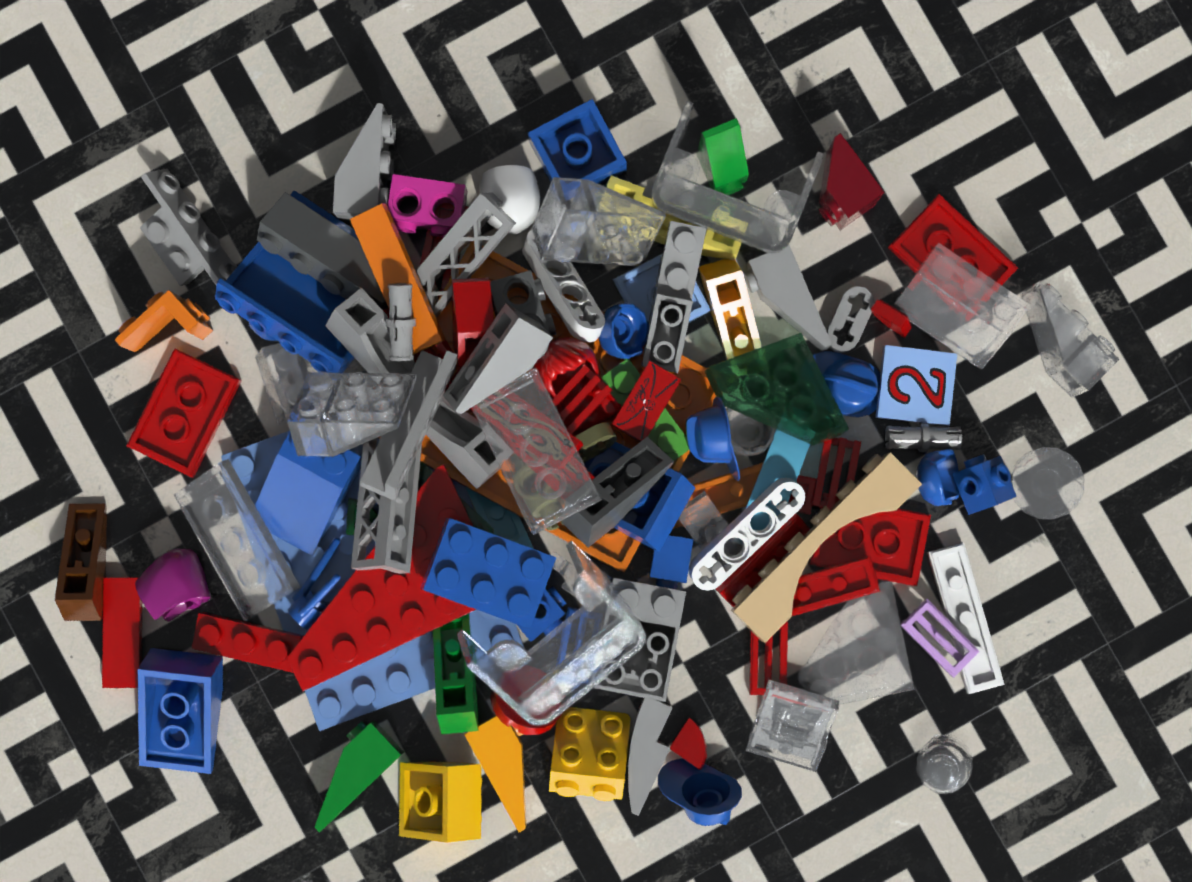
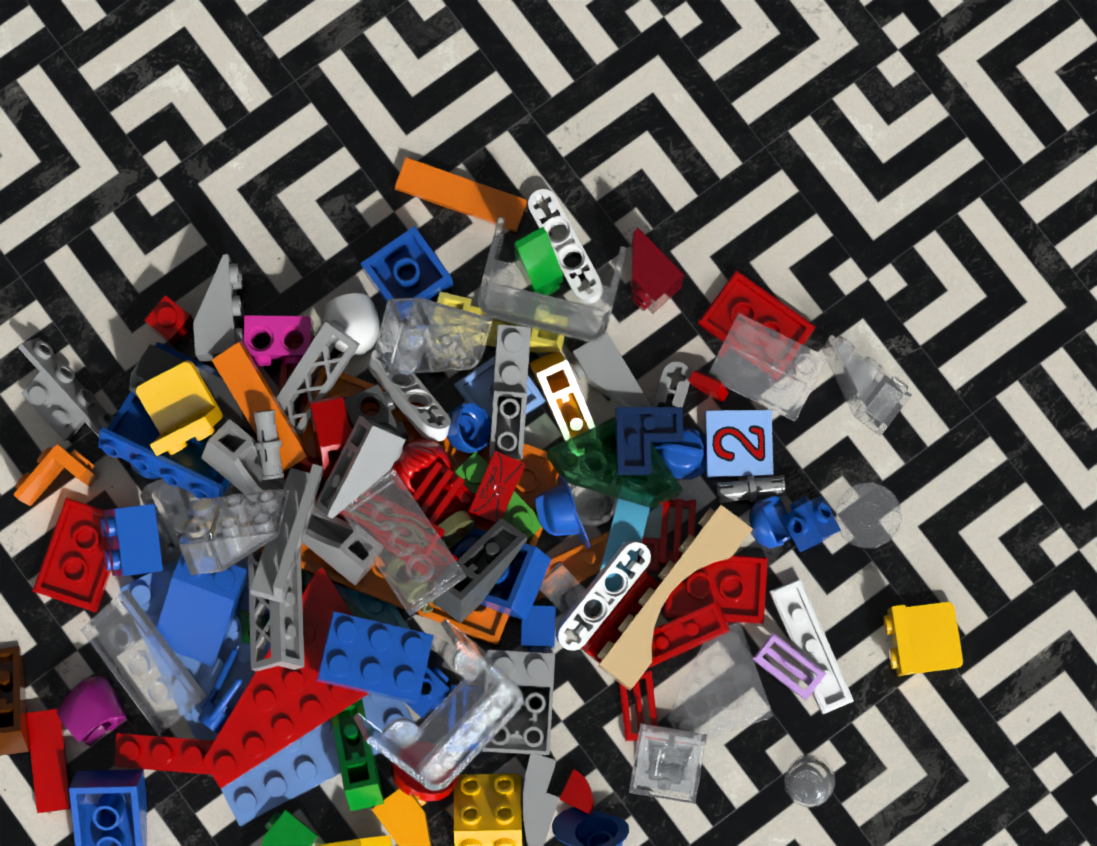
camera: 10 degrees left, 5 degrees down
(239, 406) = (131, 540): none -> blue brick
(307, 267) = (179, 407): none -> yellow bracket
(310, 169) = (169, 321): none -> red brick
(646, 70) = (460, 194): none -> orange tile
(758, 141) = (568, 244): none -> white beam
(808, 357) = (637, 428): none -> dark blue plate
(1090, 626) = (923, 638): none -> yellow bracket

